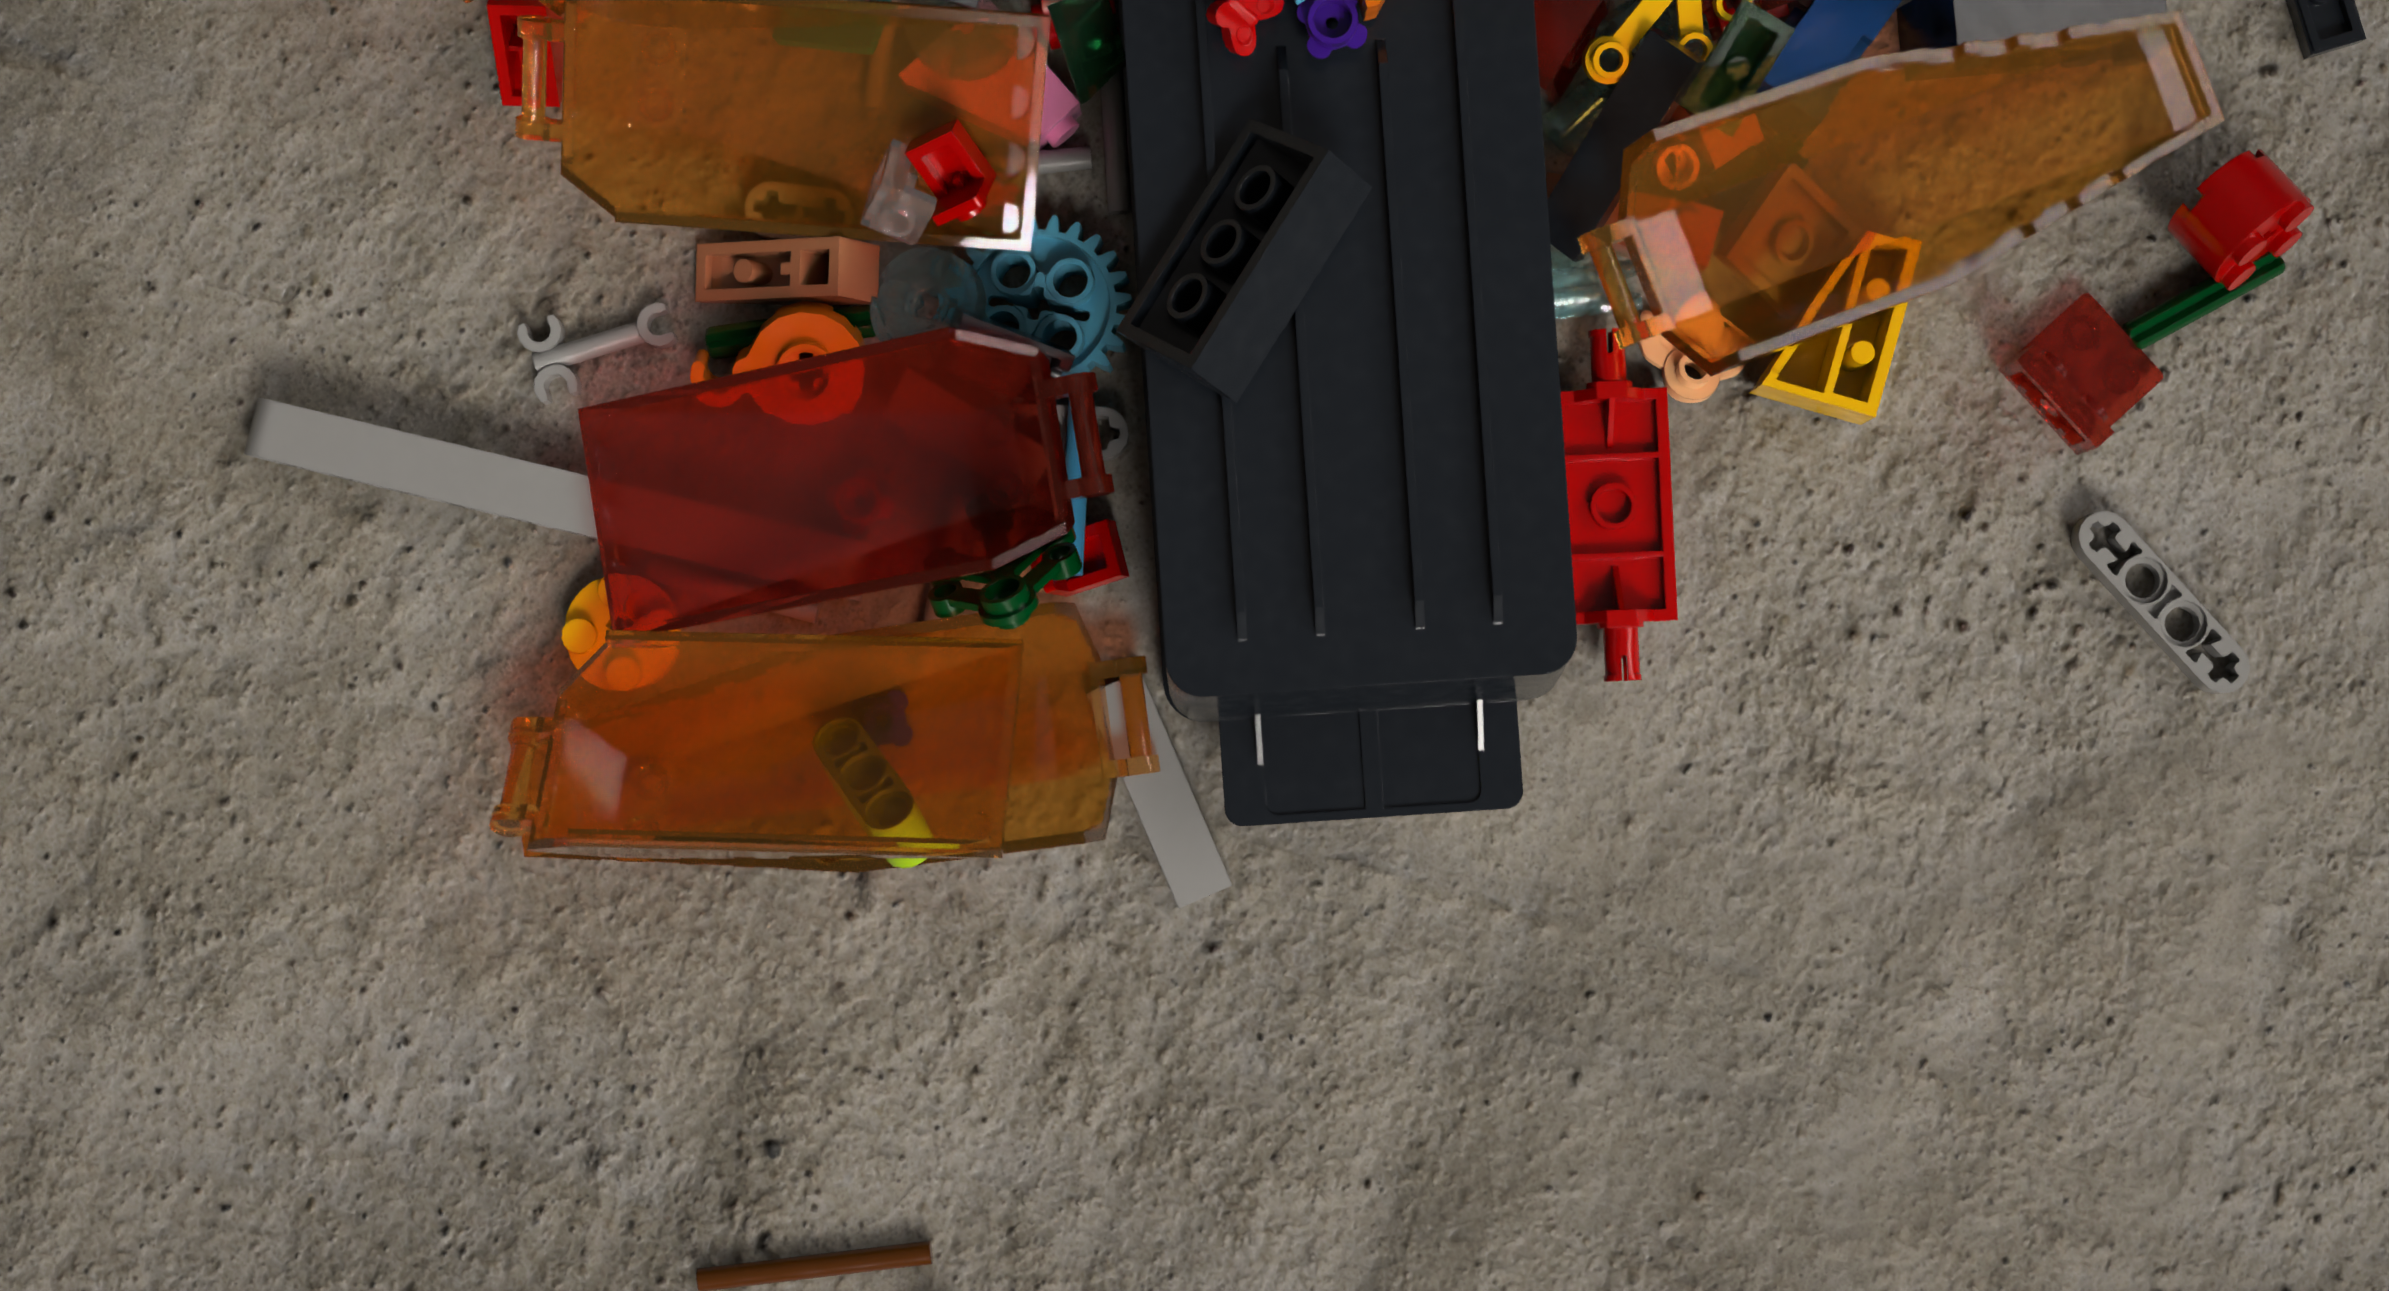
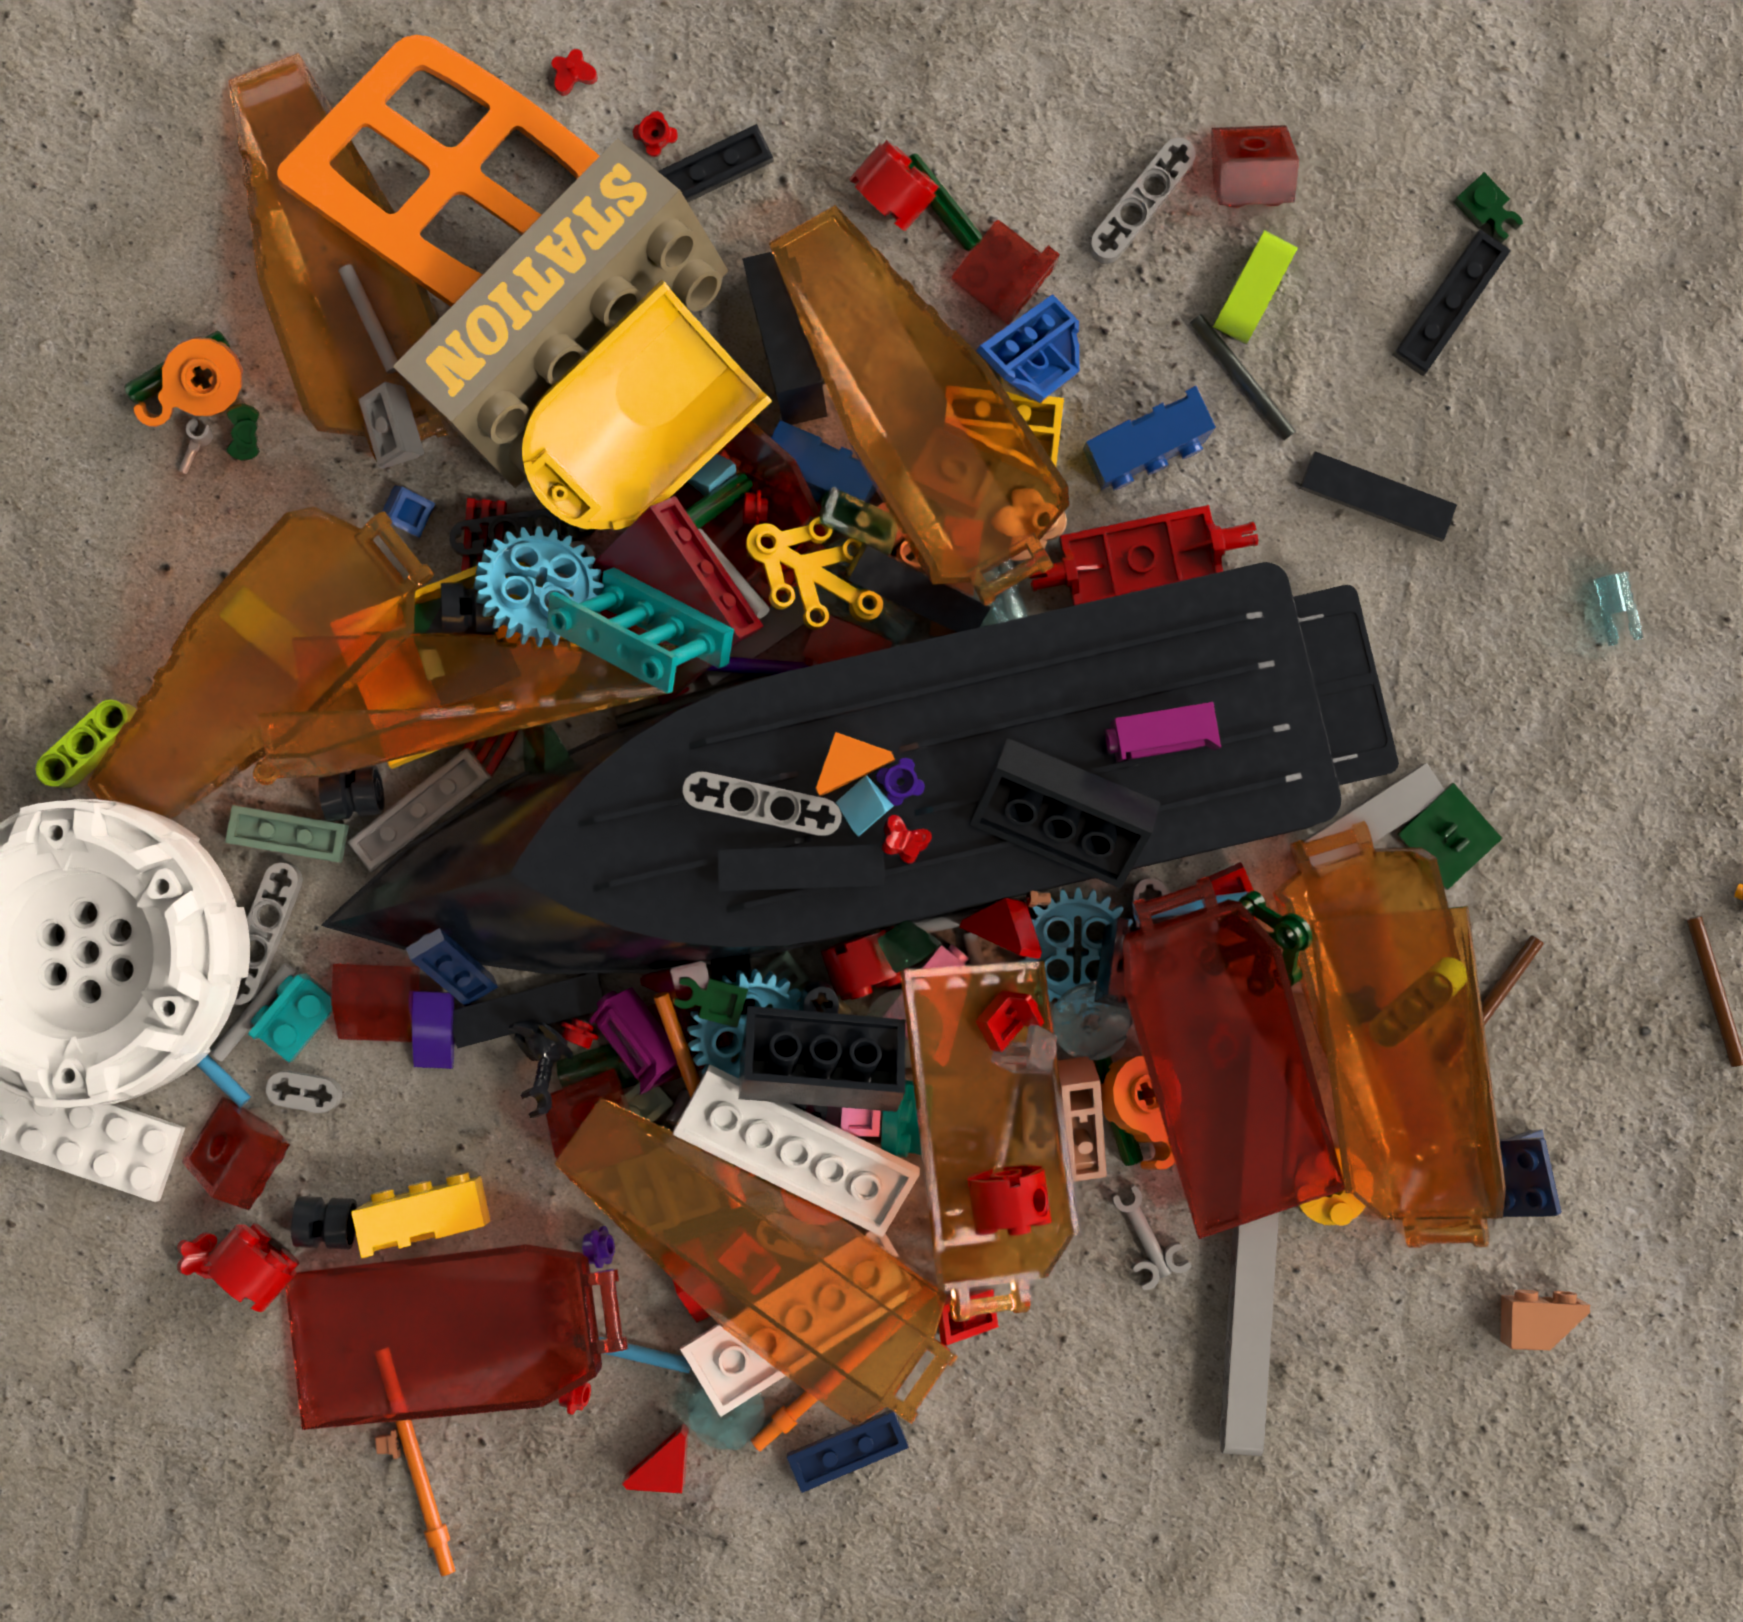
camera: 110 degrees left, 0 degrees up
(369, 906) = (1537, 1321): none -> nougat slope
(589, 916) = (1528, 1177): none -> dark blue bracket
(683, 127) = (1009, 1199): none -> red brick
(871, 939) = (1510, 977): none -> reddish brown bar
(1089, 203) = (1006, 925): none -> red slope
(1116, 902) = (1451, 832): none -> dark green piece
(1125, 250) = (1034, 898): none -> nougat piece
(1342, 427) = (1163, 732): none -> magenta window
(1435, 1218) = (1616, 598): none -> clear light blue hinge
(1649, 883) = (1378, 496): none -> black tile
(1787, 542) = (1150, 441): none -> blue wedge
(1864, 709) = (1242, 377): none -> pearl dark grey bar
(1930, 1049) = (1451, 302): none -> black tile
(1954, 387) = (1035, 351): none -> blue wedge
(2000, 749) = (1255, 287): none -> lime beam
(2076, 1127) = (1484, 203): none -> dark green plate
(2188, 777) = (1254, 165): none -> clear red slope

